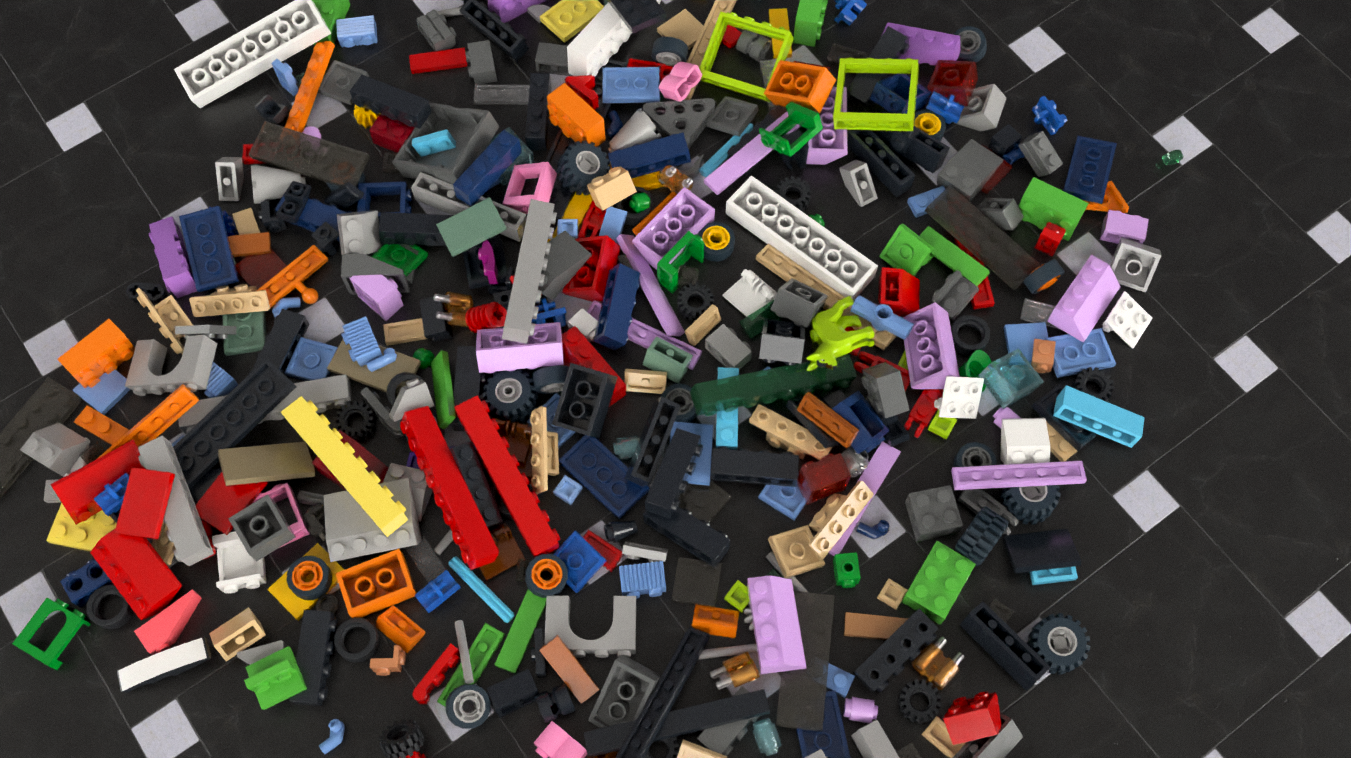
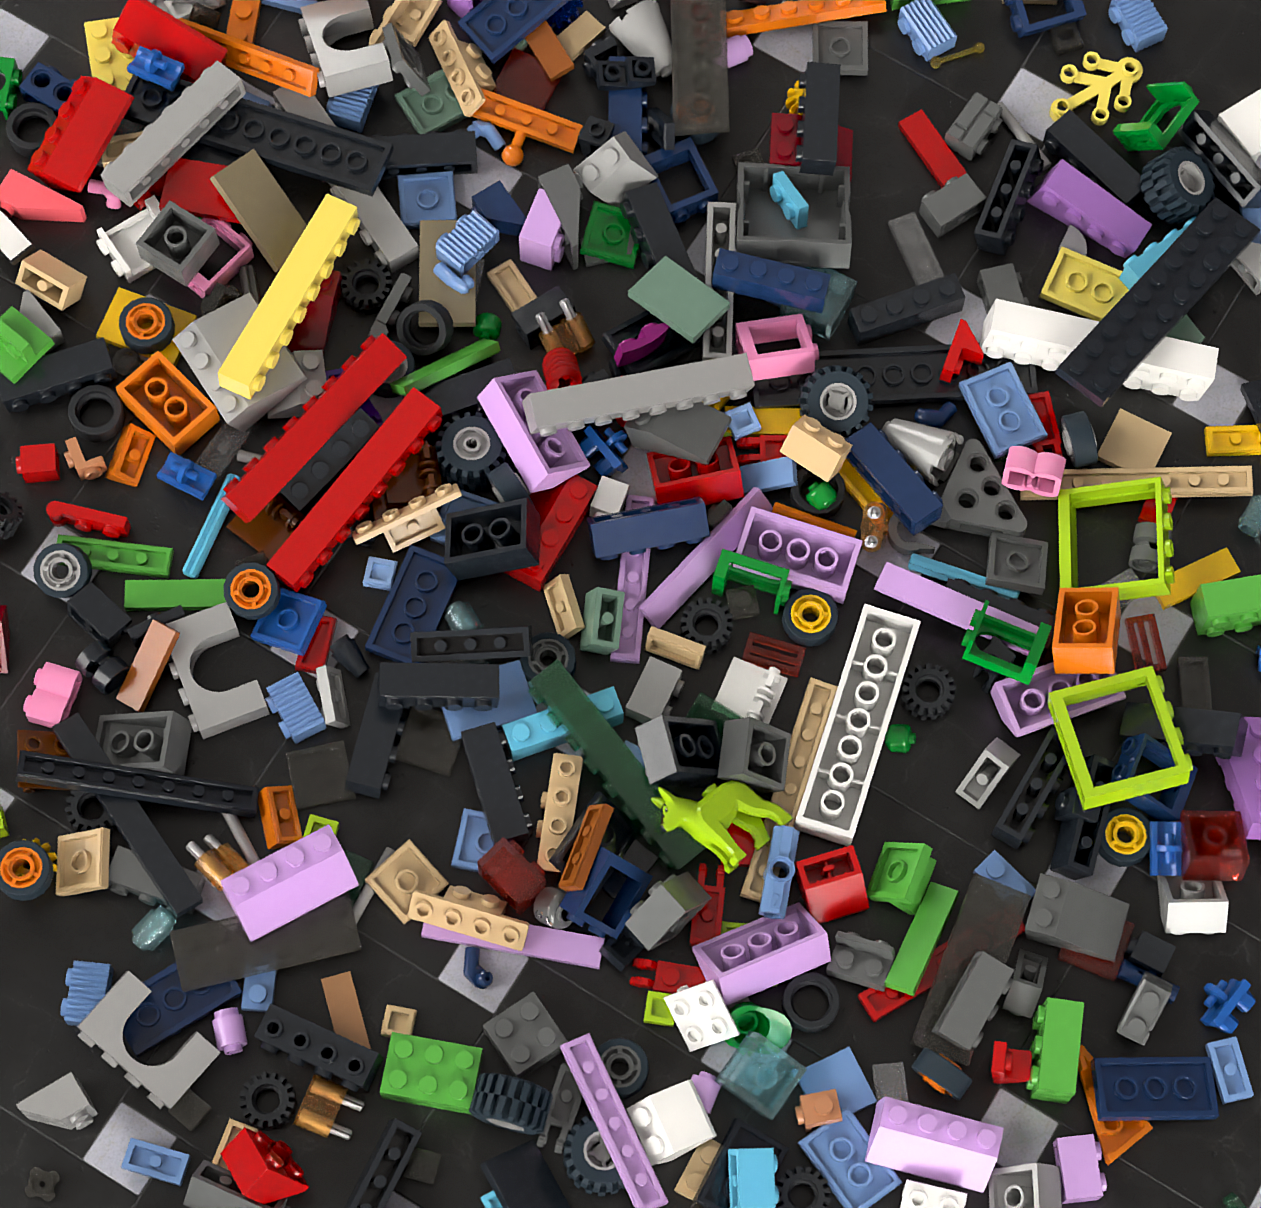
camera: 65 degrees right, 5 degrees up
(144, 503) = (152, 102): red tile -> none
(186, 570) = (98, 187): none -> bright pink arm
(346, 313) = (499, 209): none -> dark blue slope
(375, 695) = (39, 463): none -> red brick
(381, 37) = (936, 61): none -> clear yellow hinge
(411, 397) = (412, 335): light grey slope -> none
(464, 653) = (126, 538): light grey bar -> none
(575, 116) = (902, 358): orange brick -> none
(721, 284) = (765, 663): none -> clear red tile
(846, 570) = (404, 952): green brick -> none
(1007, 238) = (974, 1001): none -> dark grey brick
(1088, 128) = (1229, 1070): none -> medium blue plate

